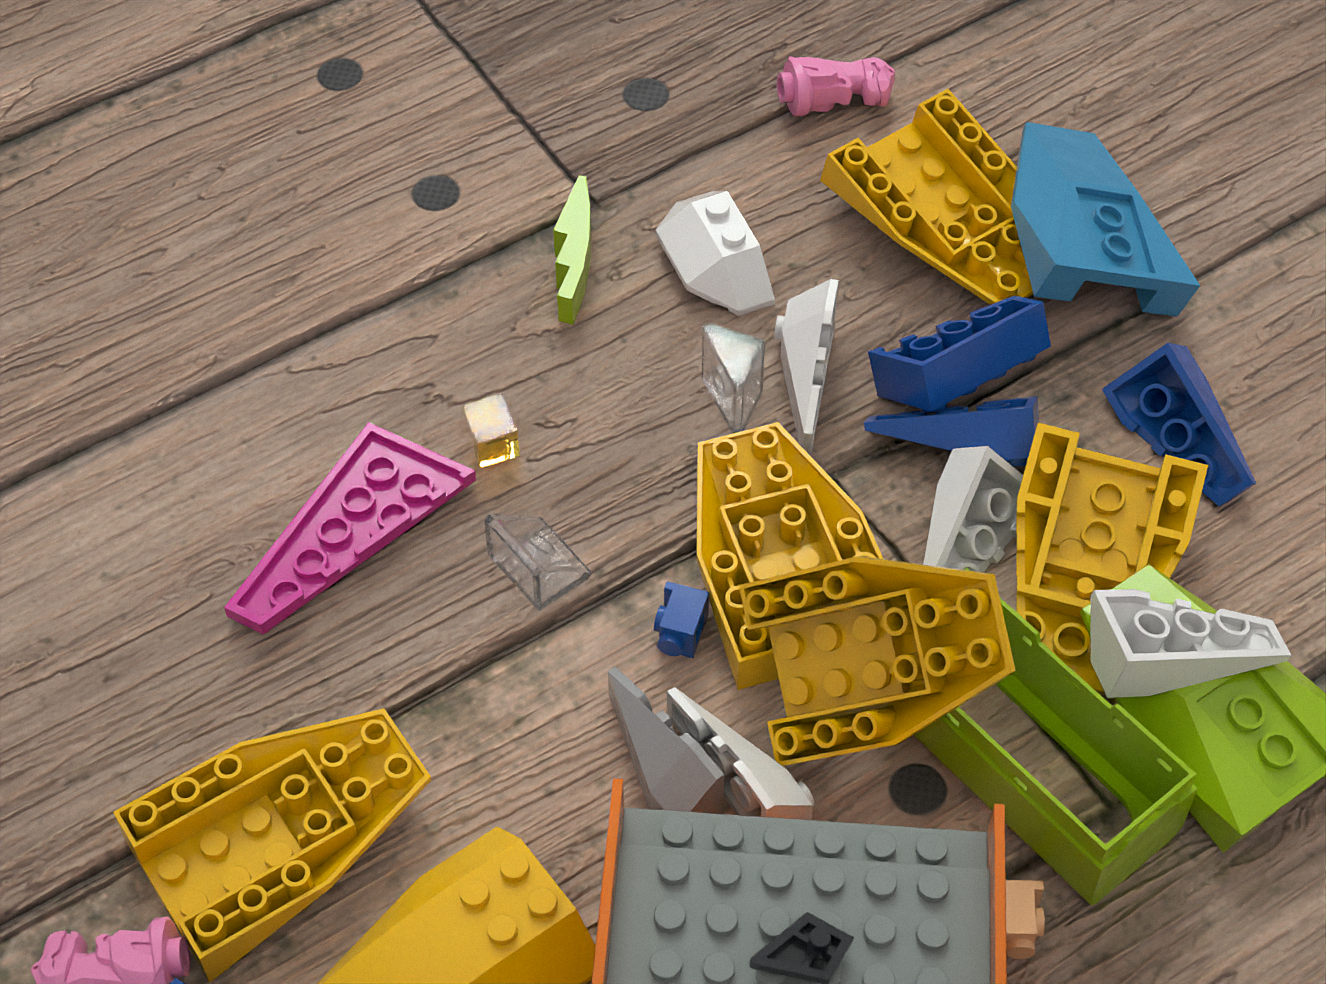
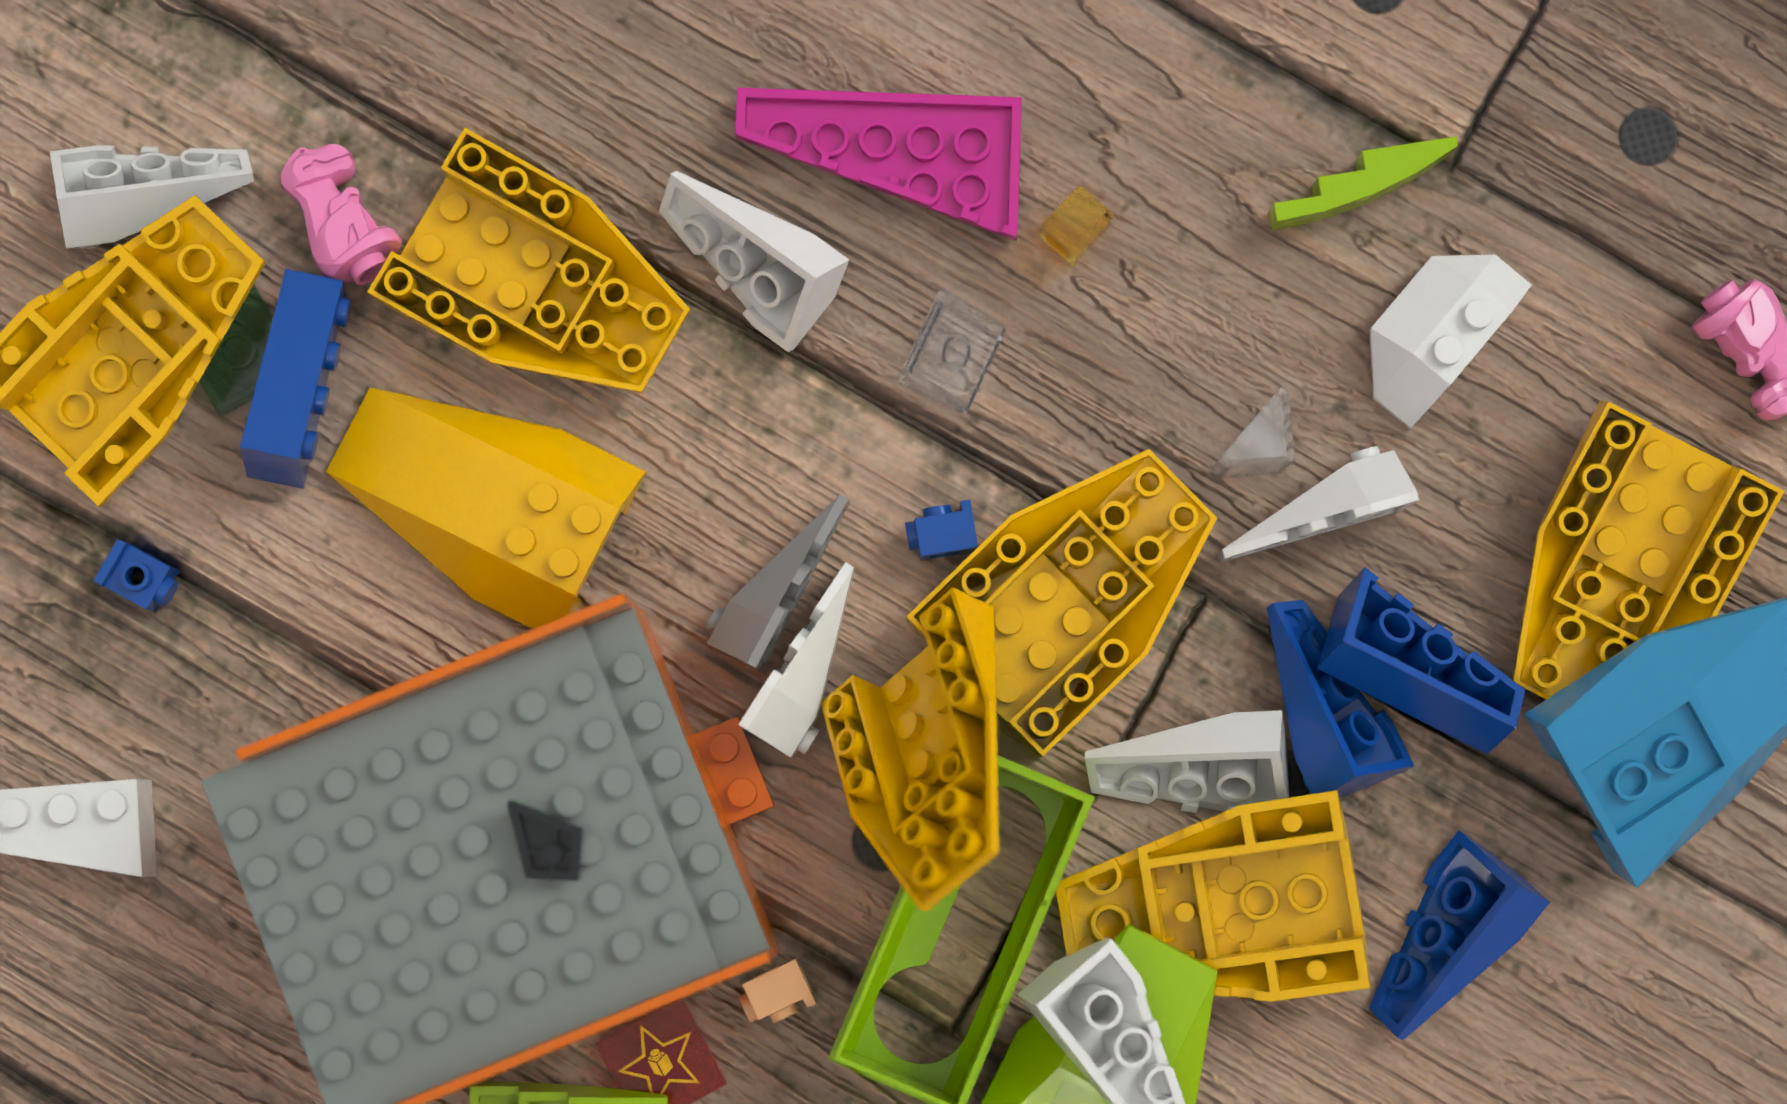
camera: 65 degrees right, 30 degrees up
(376, 656) = (768, 263): none -> white wedge

